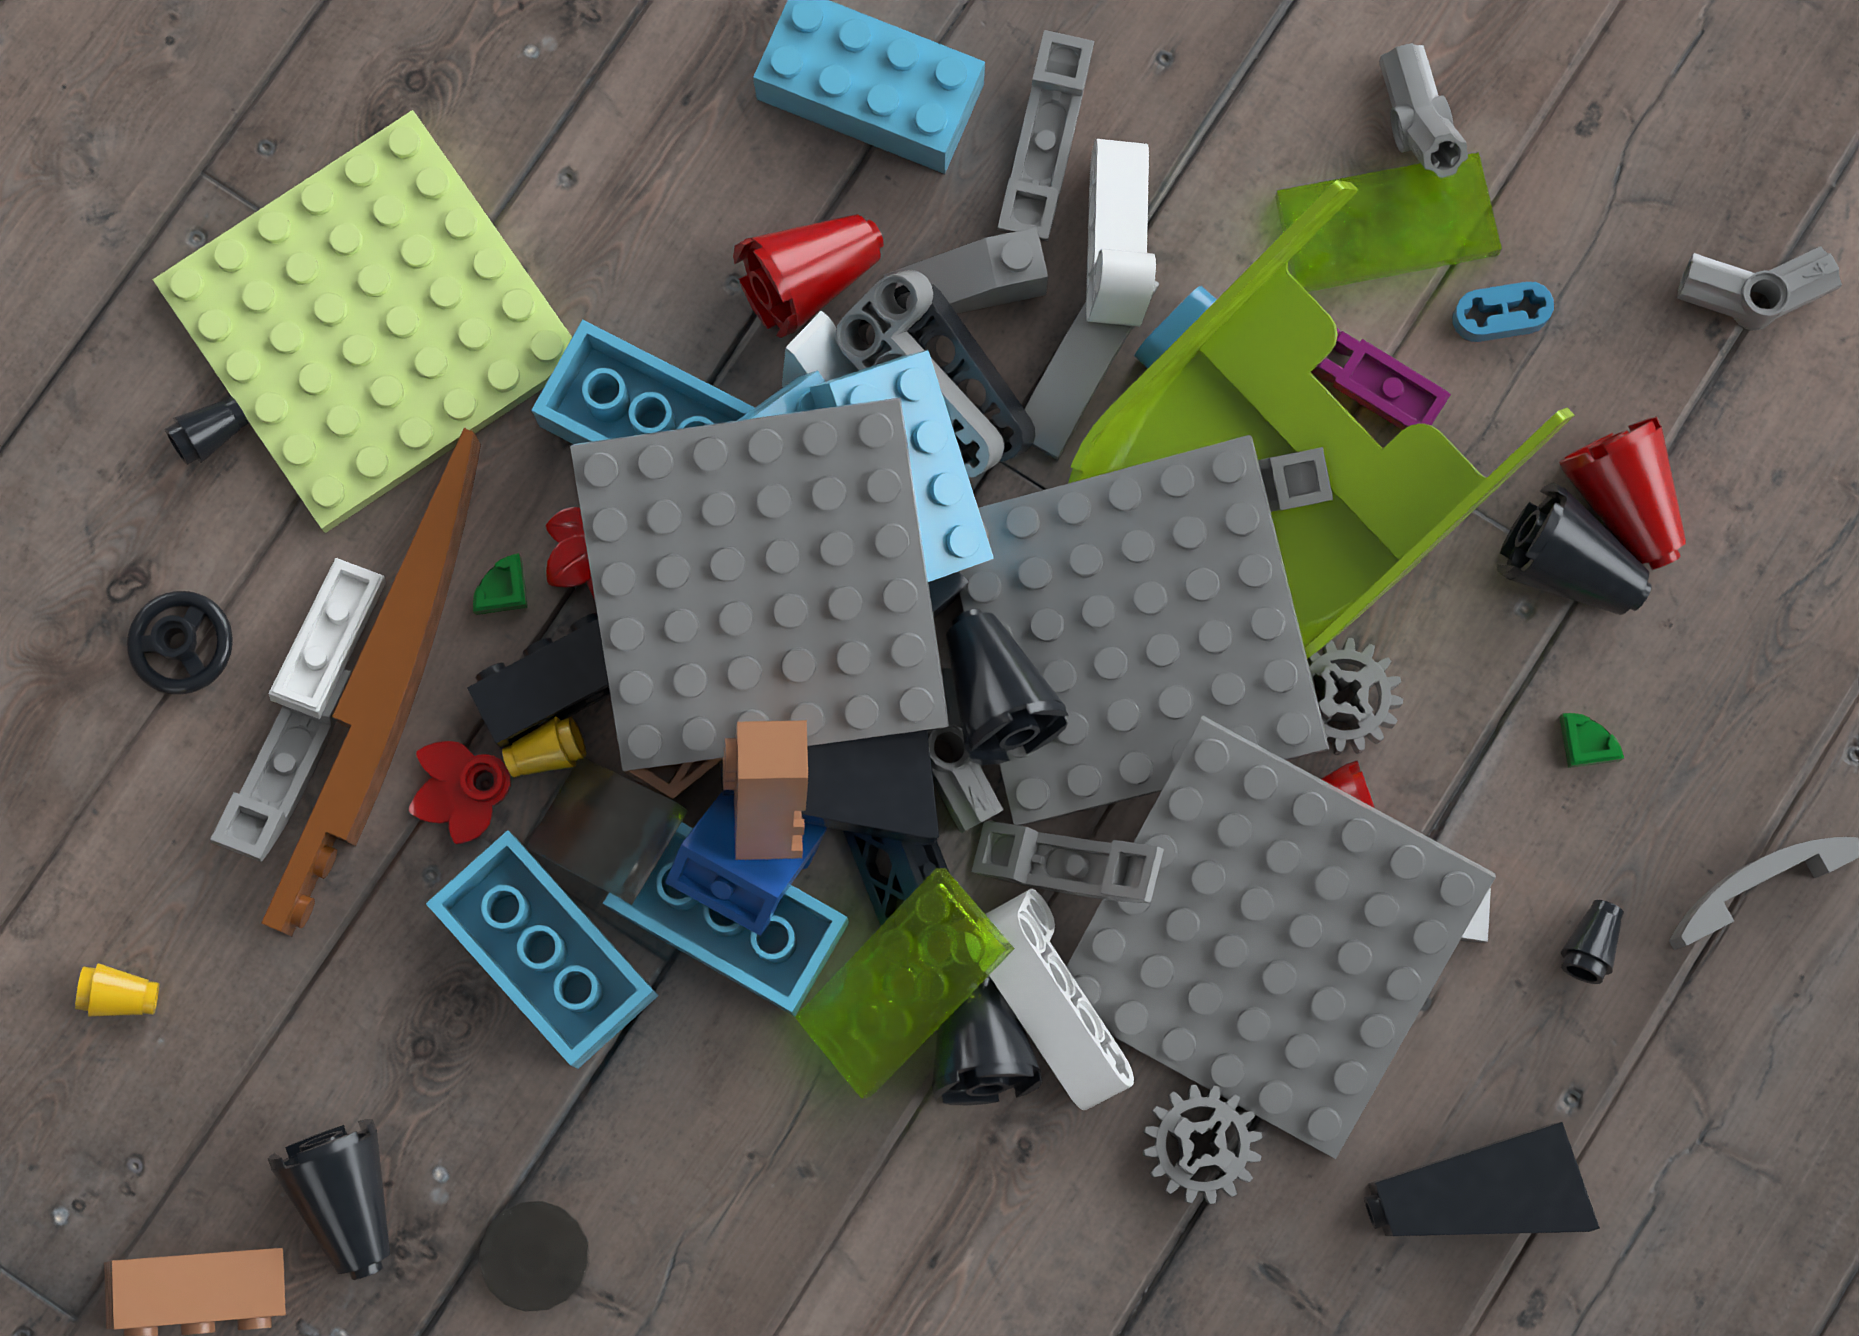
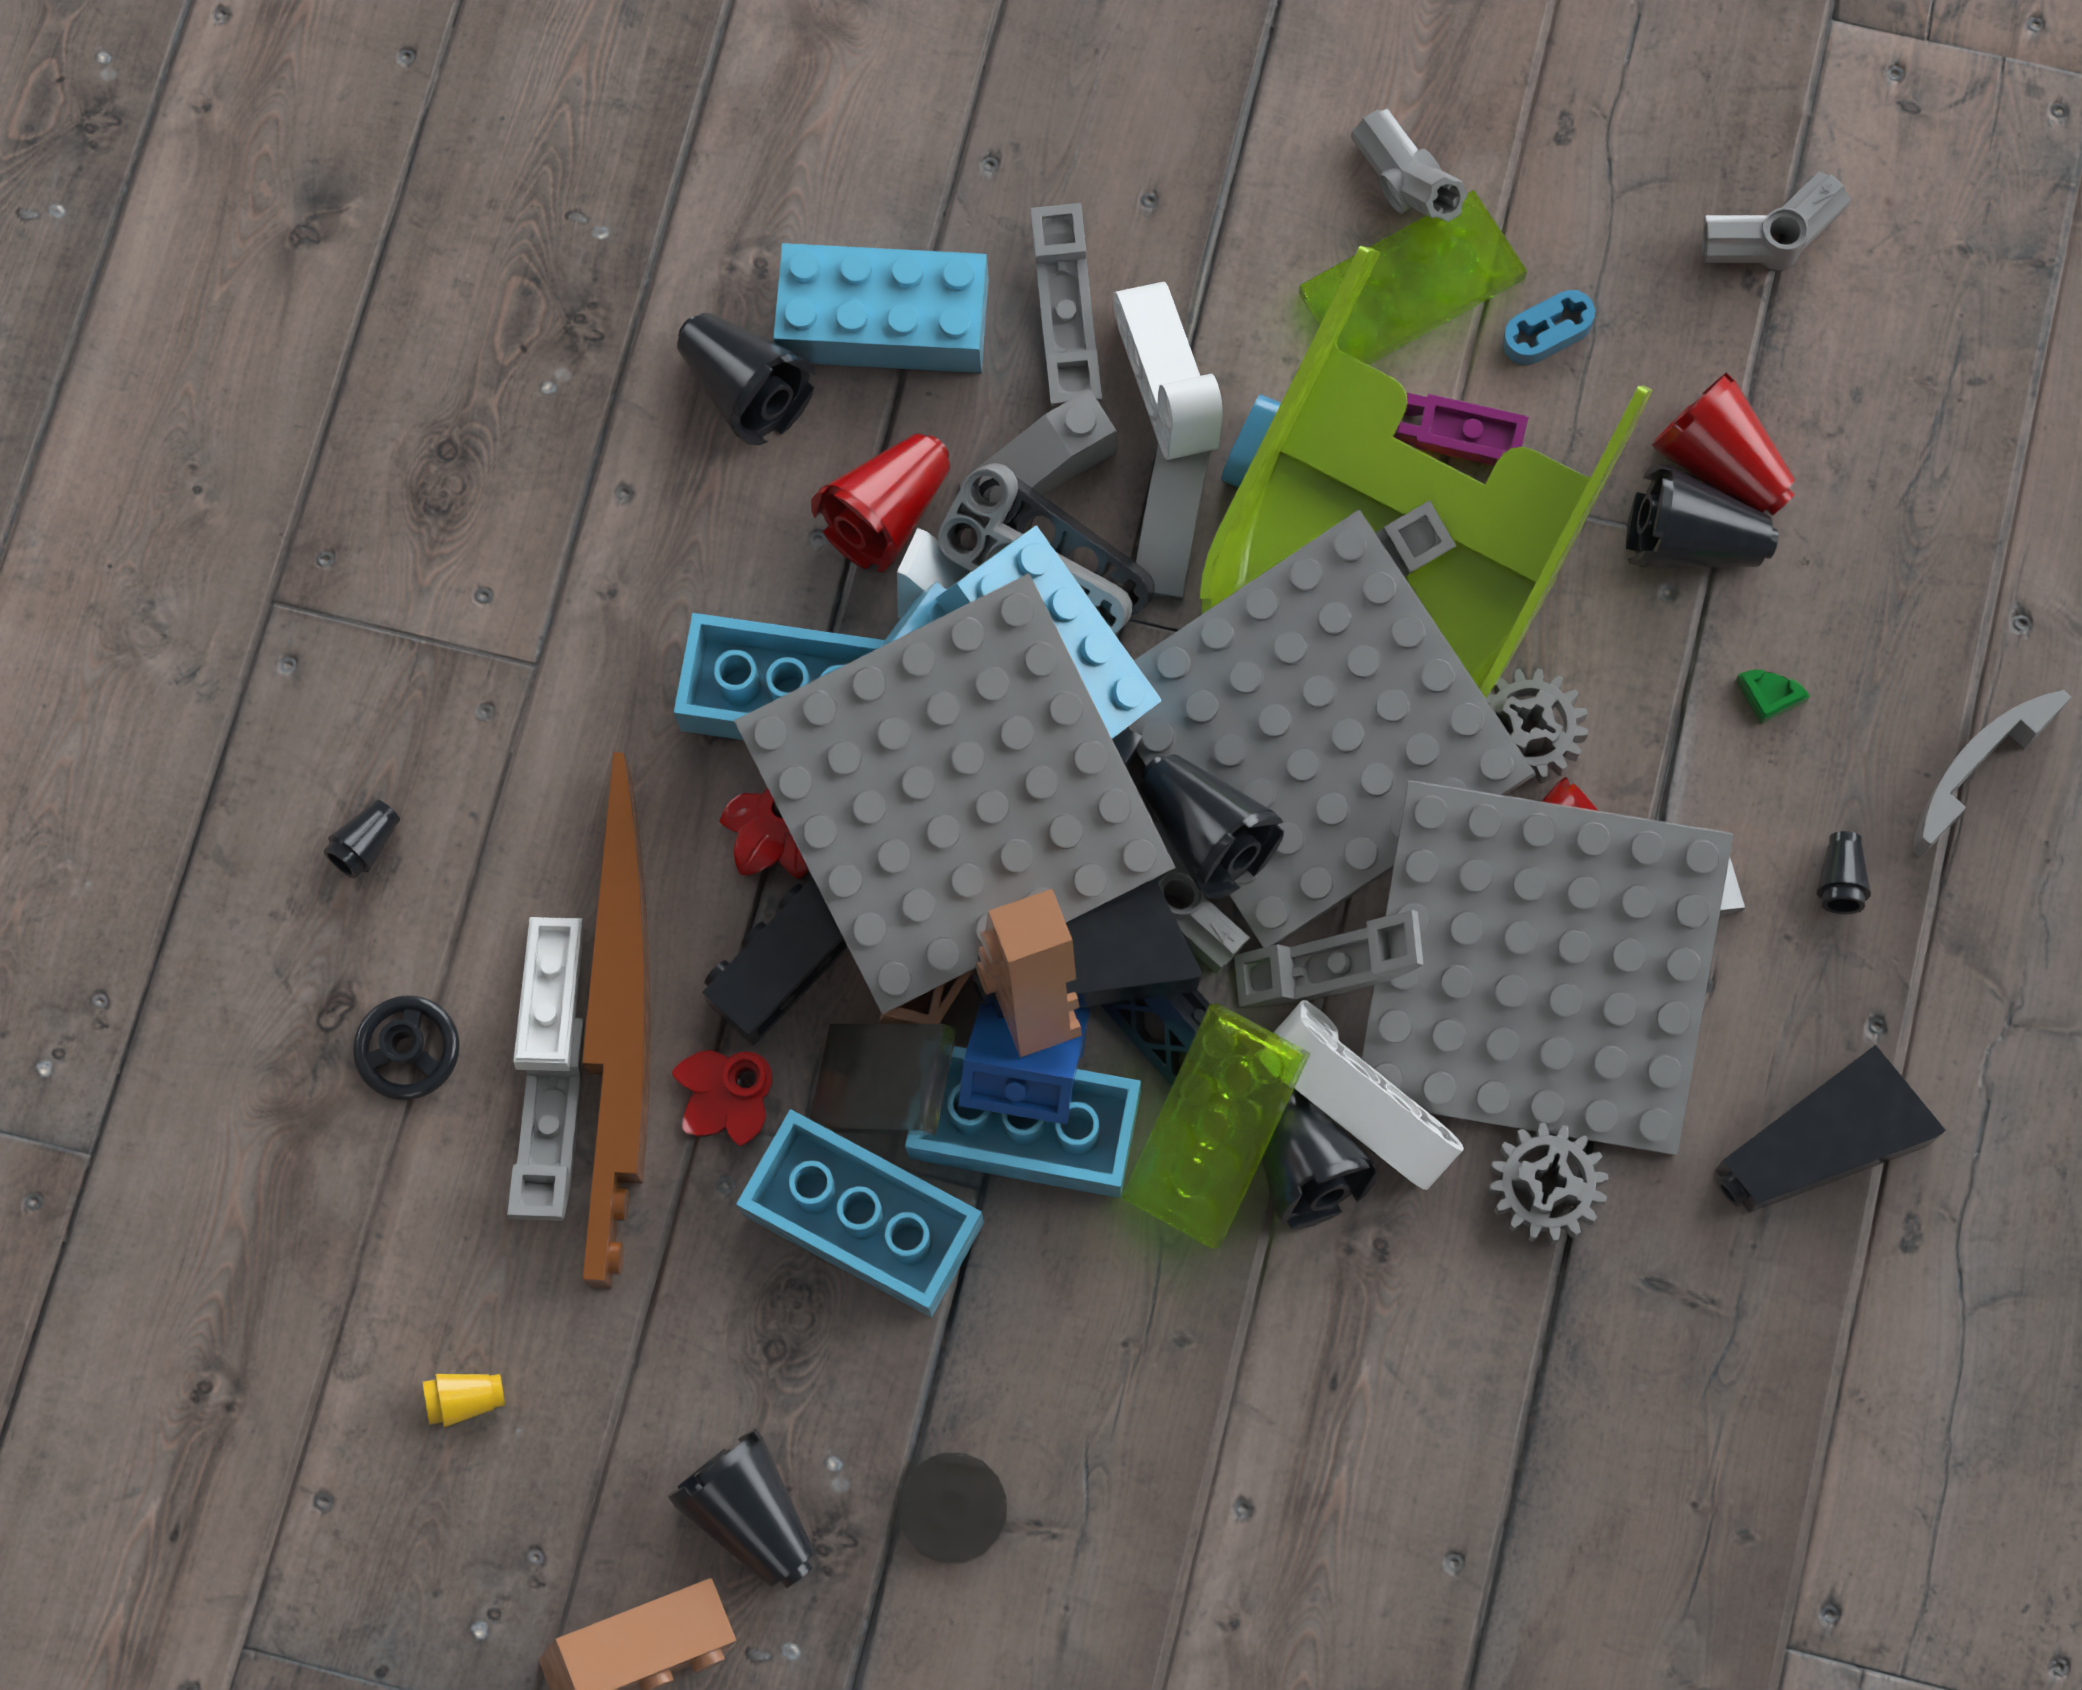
camera: 15 degrees left, 5 degrees down
(367, 320) = (481, 686): yellowish green plate -> none
(501, 587) = (698, 893): green tile -> none
(546, 748) = (794, 1027): yellow cone -> none
(717, 104) = (746, 376): none -> black cone

